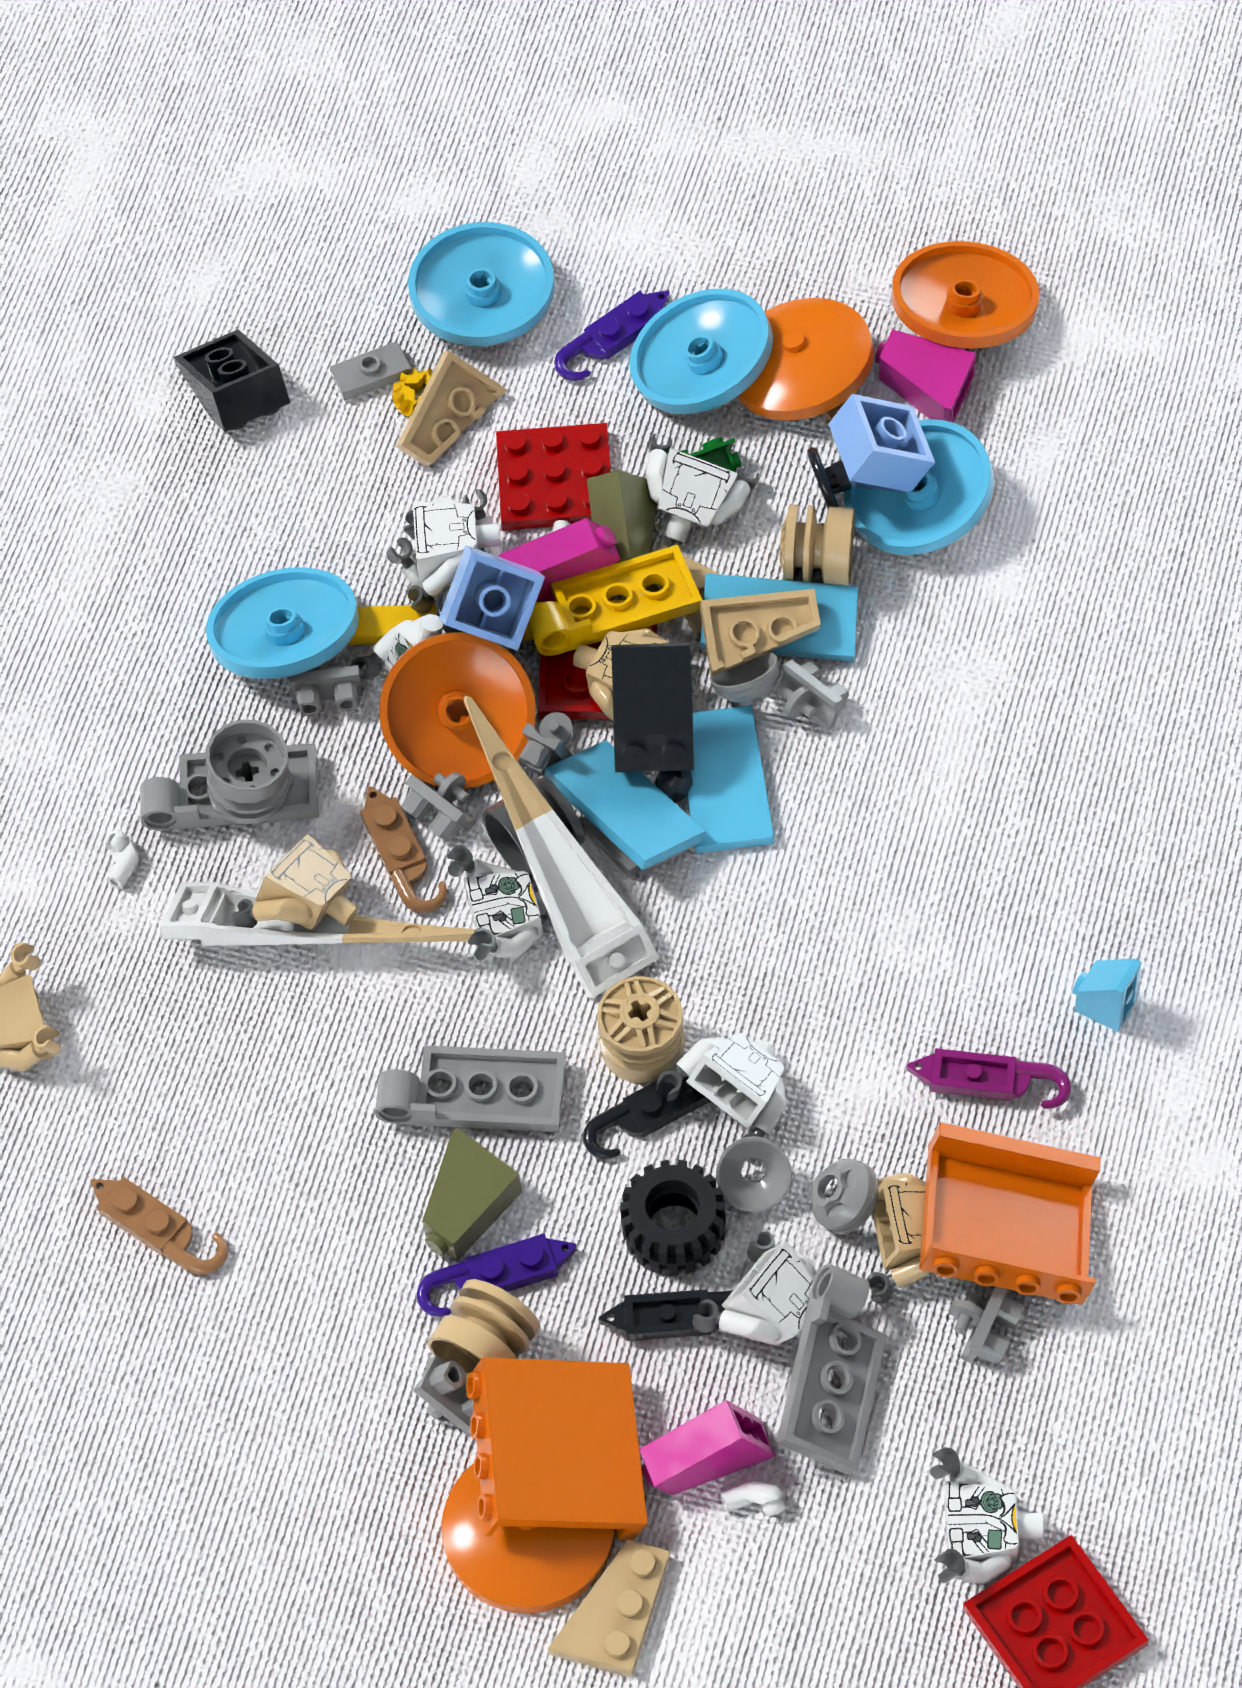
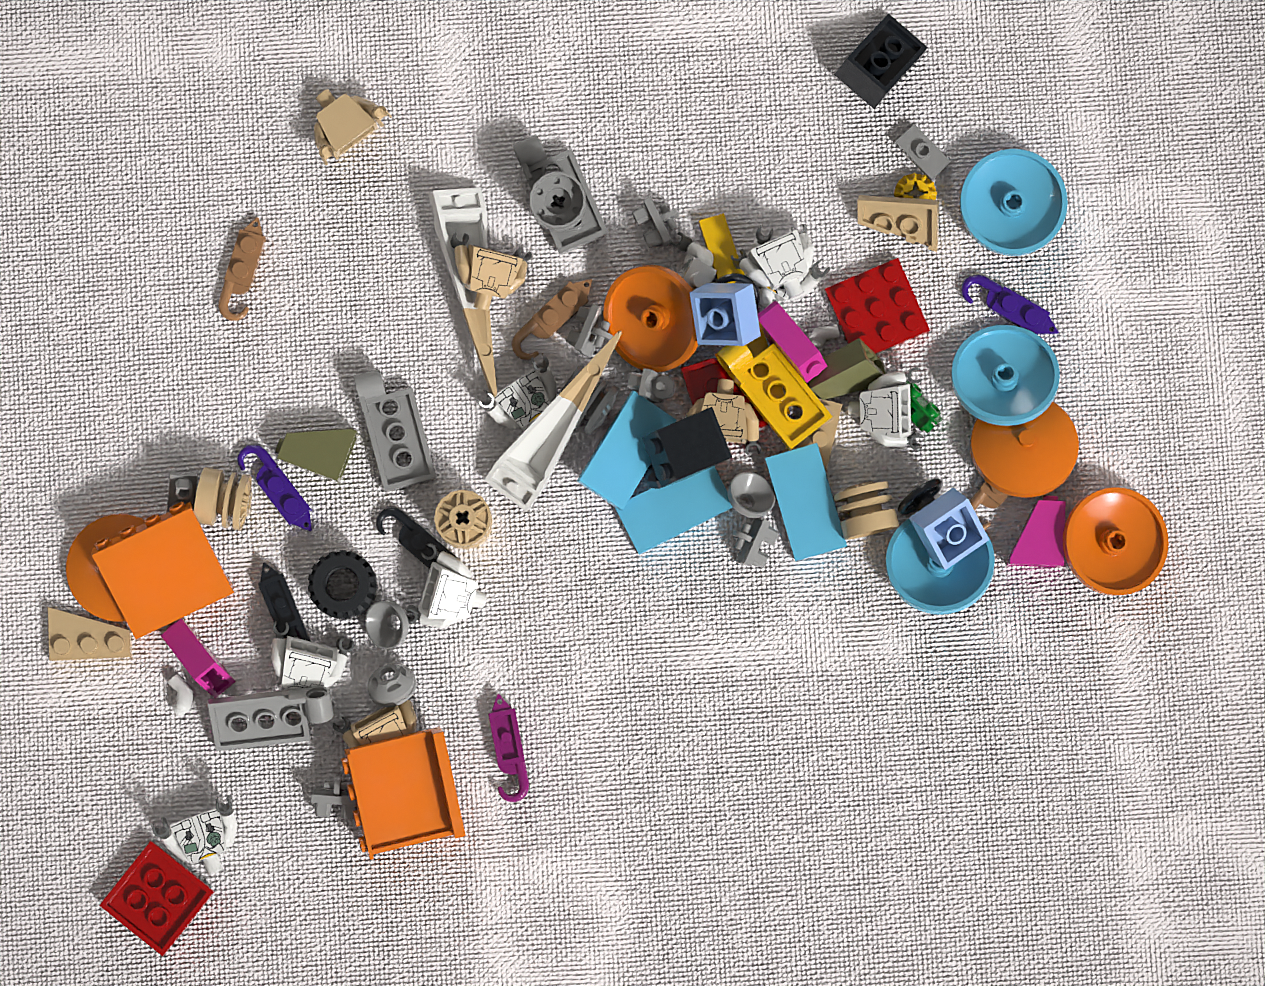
camera: 65 degrees right, 25 degrees up
(125, 858) = (489, 143): white arm -> none
(282, 623) = (690, 175): medium azure dish -> none
(754, 625) = (786, 489): tan wing -> none
(1108, 991) = (588, 803): medium azure slope -> none

